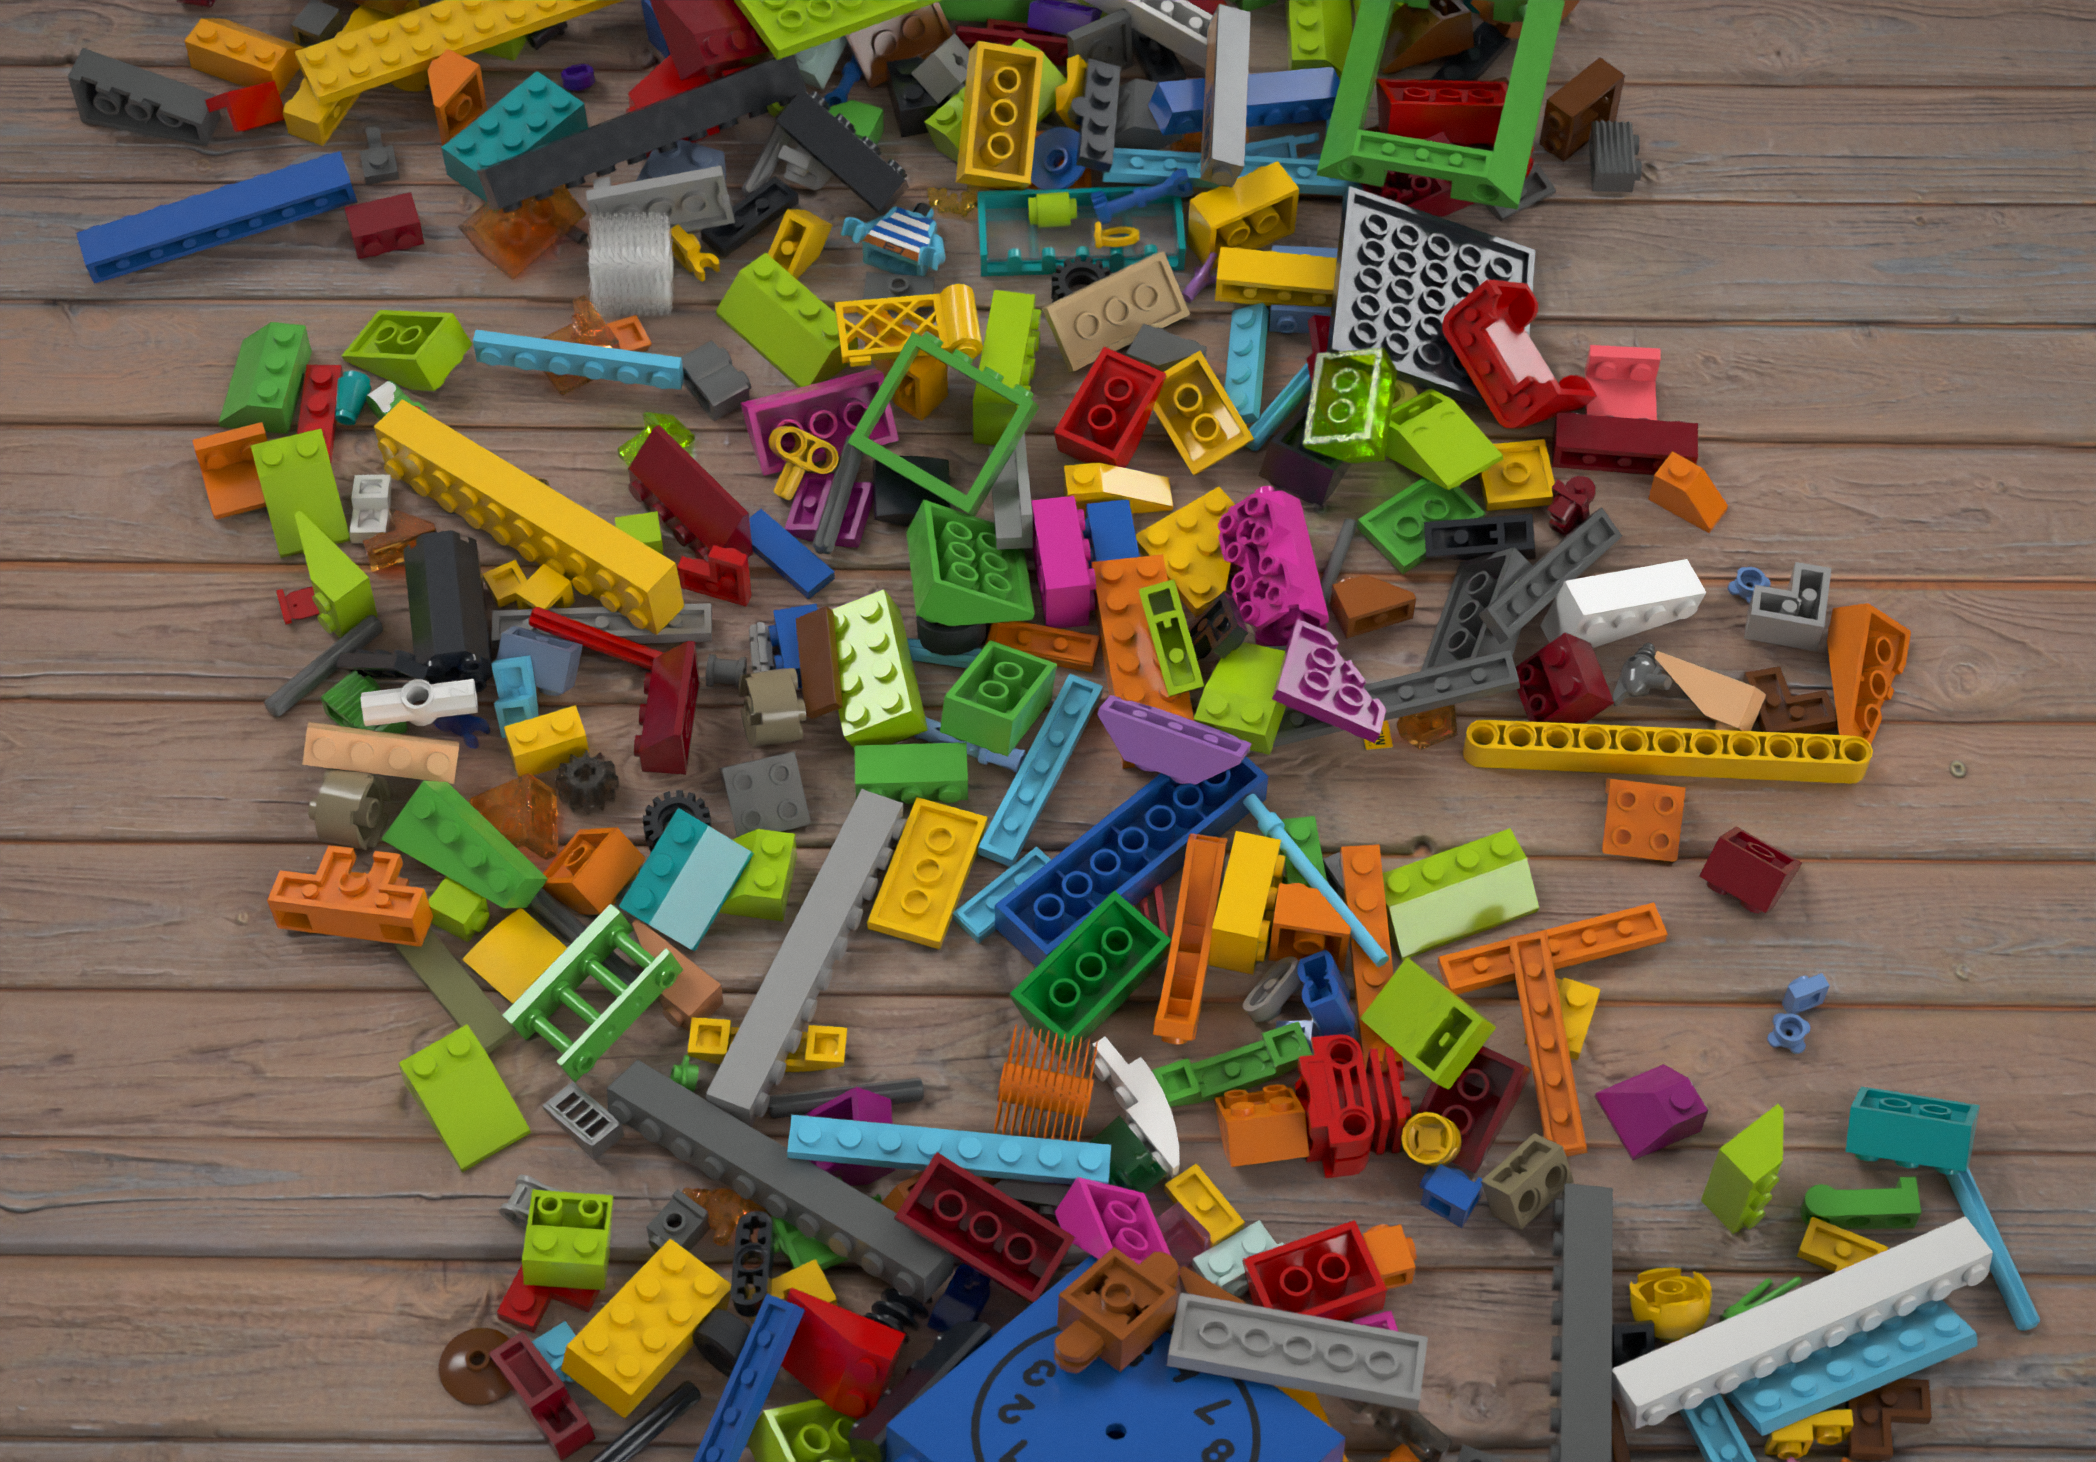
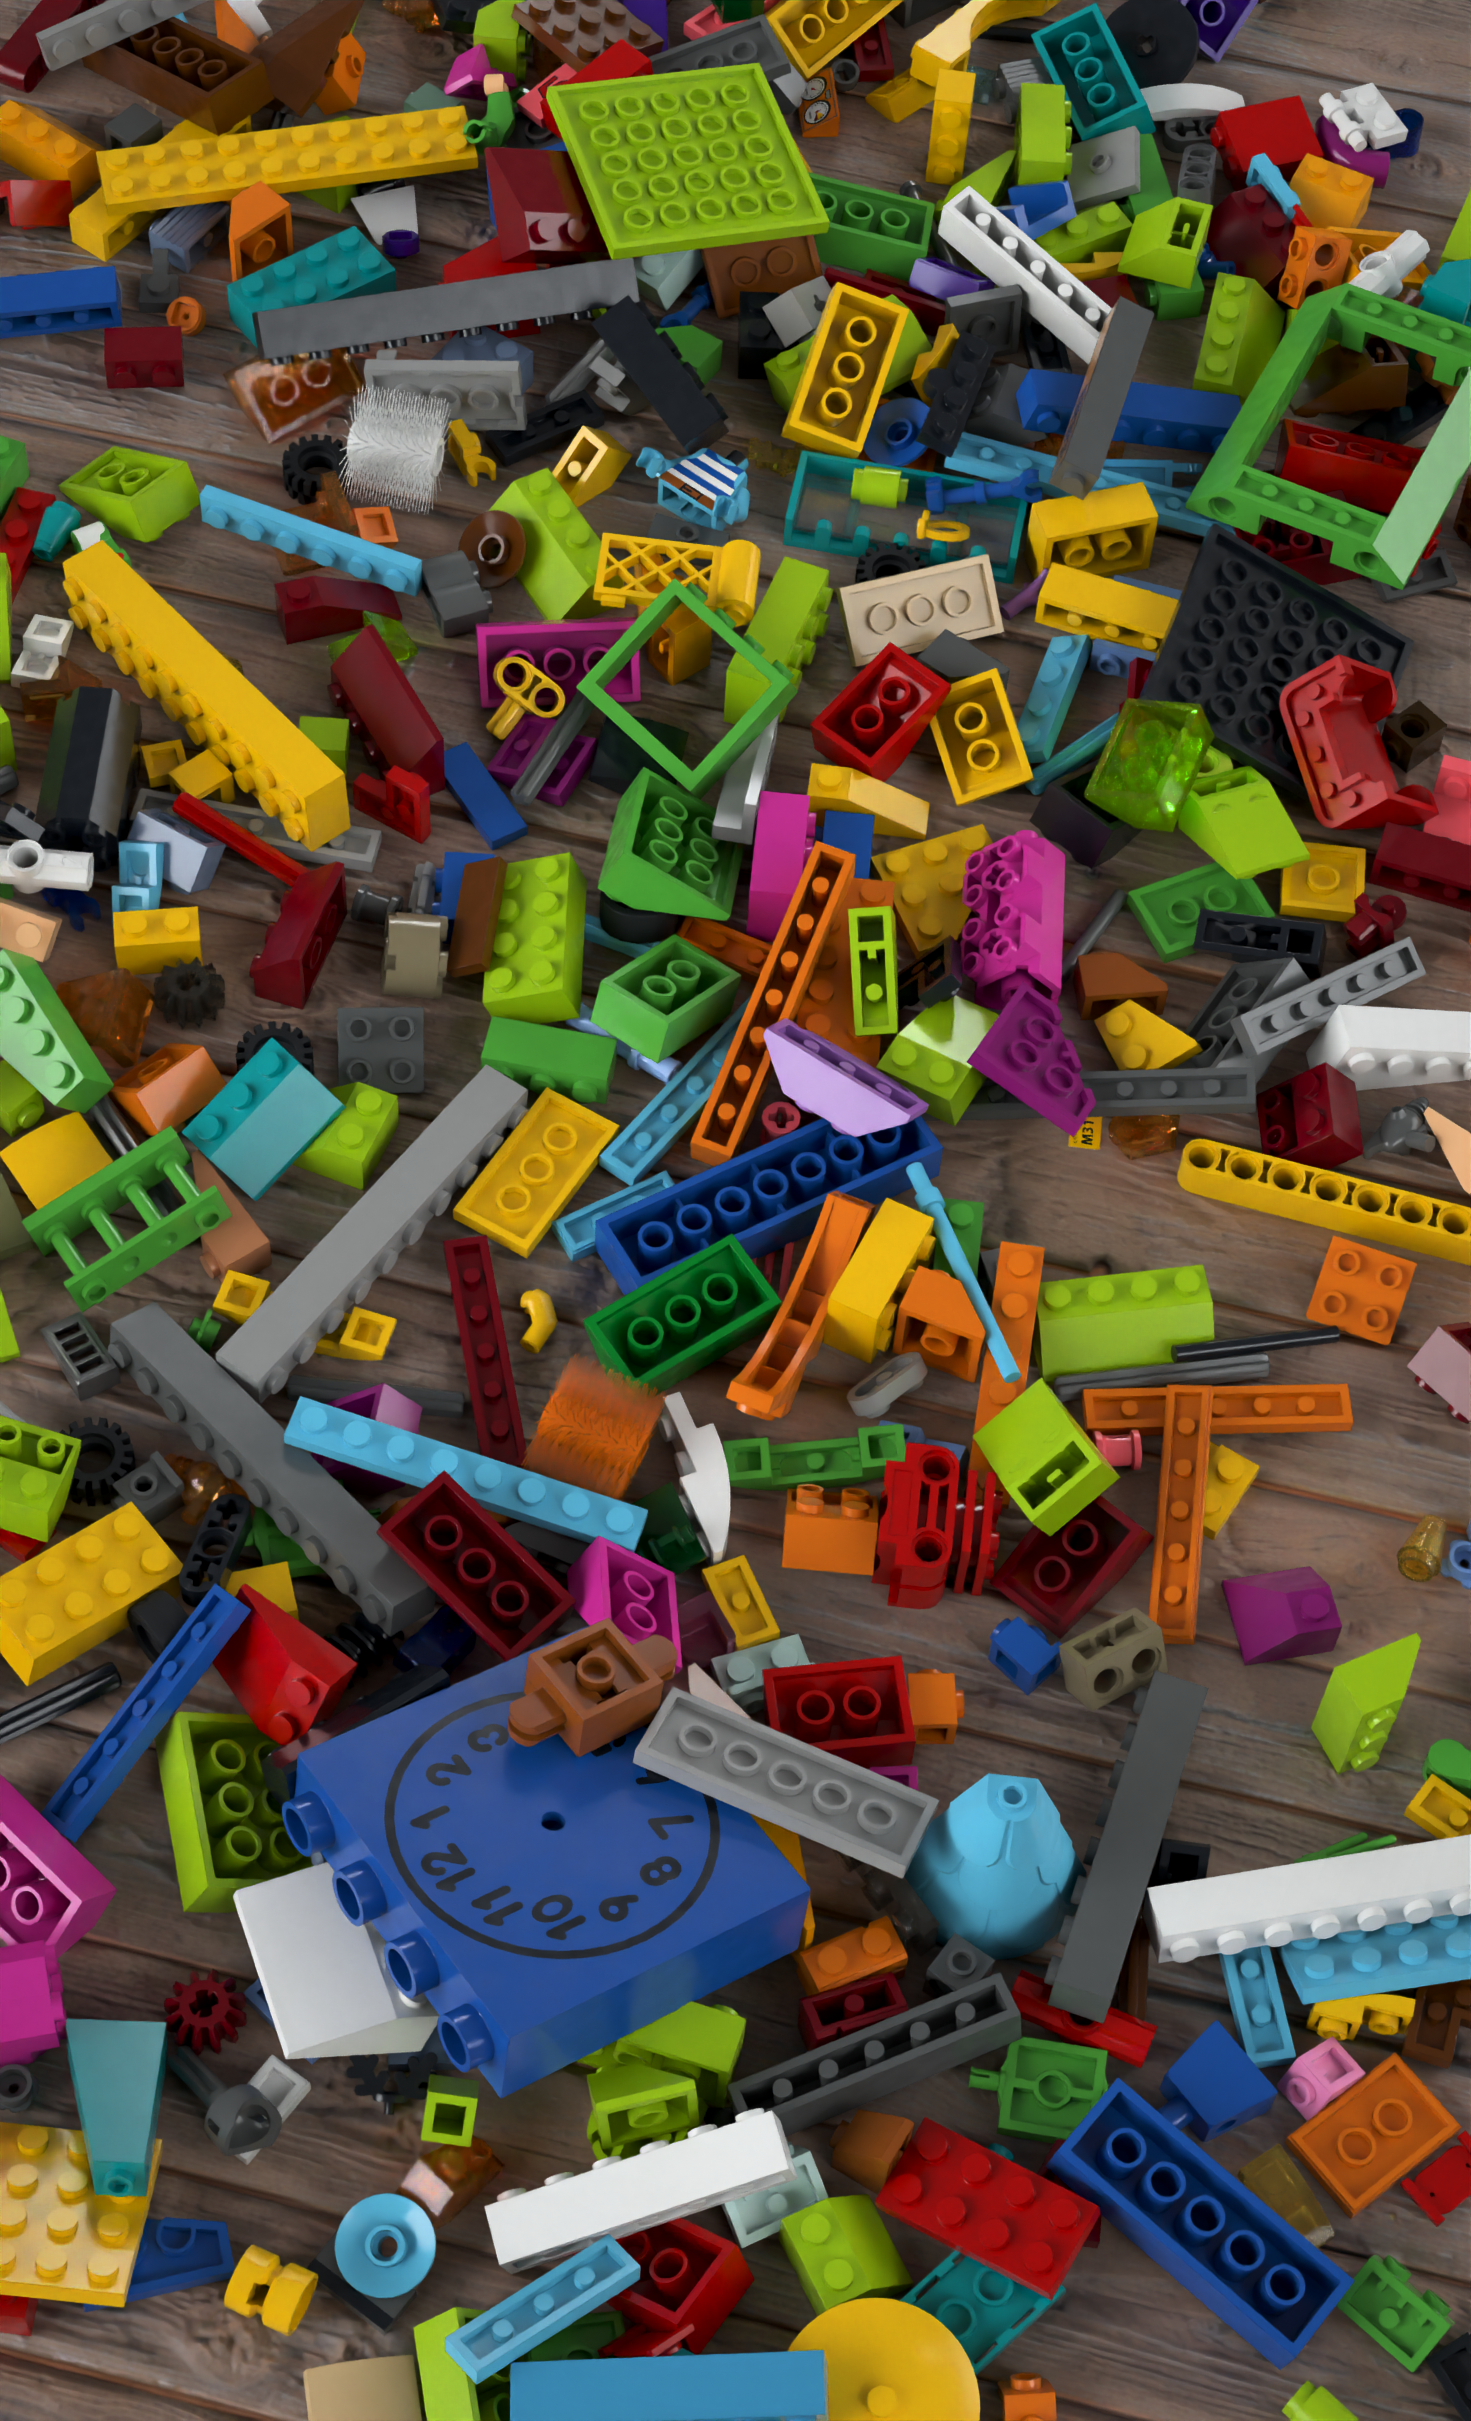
camera: 10 degrees right, 0 degrees up
(392, 105) = (190, 232): none -> sand blue brick
(410, 179) = (187, 314): none -> orange tile
(556, 281) = (309, 455): none -> black tyre
(558, 51) = (388, 211): none -> white sticker
(609, 414) = (329, 606): none -> dark red slope
(642, 1195) = (104, 1439): none -> black tyre
(727, 323) = (483, 540): none -> reddish brown dish
(928, 1038) = (485, 1350): none -> dark red plate
(969, 998) = (543, 1318): none -> yellow arm
(1093, 685) = (775, 997): none -> orange brick
(1119, 790) = (775, 1128): none -> coral bush
(1326, 994) = (941, 1400): blue brick -> none
(1406, 646) = (1144, 1040): none -> yellow wing
(1431, 1139) = (1016, 1587): yellow wheel -> none
(1484, 1000) = (1120, 1449): none -> coral bush
(1487, 1381) = (998, 1867): none -> medium azure cone
(1502, 928) = (1193, 1372): none -> dark grey axle
(1557, 332) = (1413, 736): none -> dark brown brick
(1568, 885) = (1254, 1343): none -> black bar
(1671, 1301) = (1240, 1830): yellow cylinder -> none
(1753, 1029) = (1423, 1551): none -> clear yellow cone

